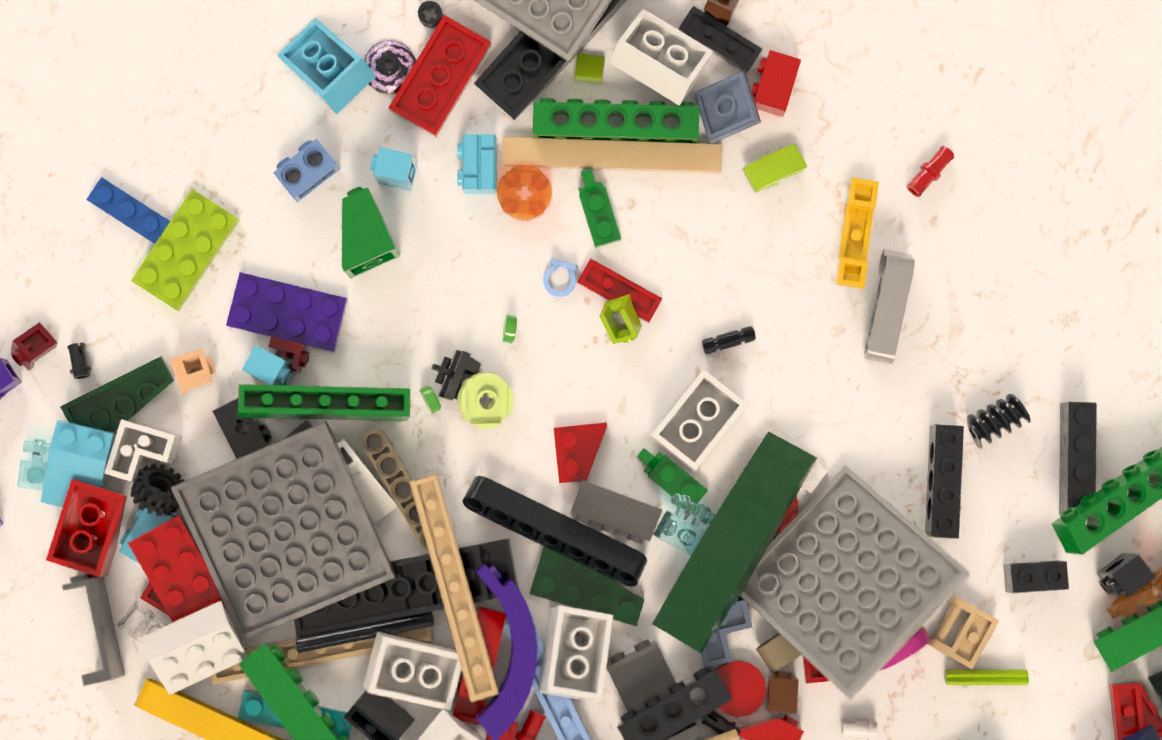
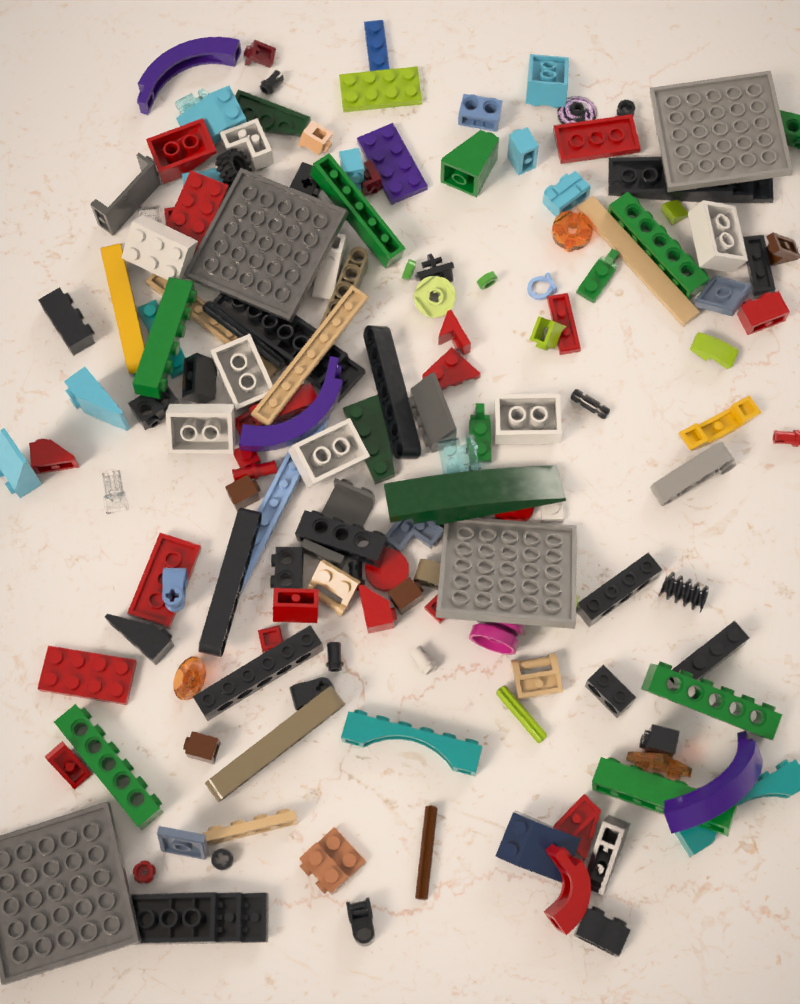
camera: 55 degrees right, 15 degrees down
(534, 410) = (453, 331): none -> red slope

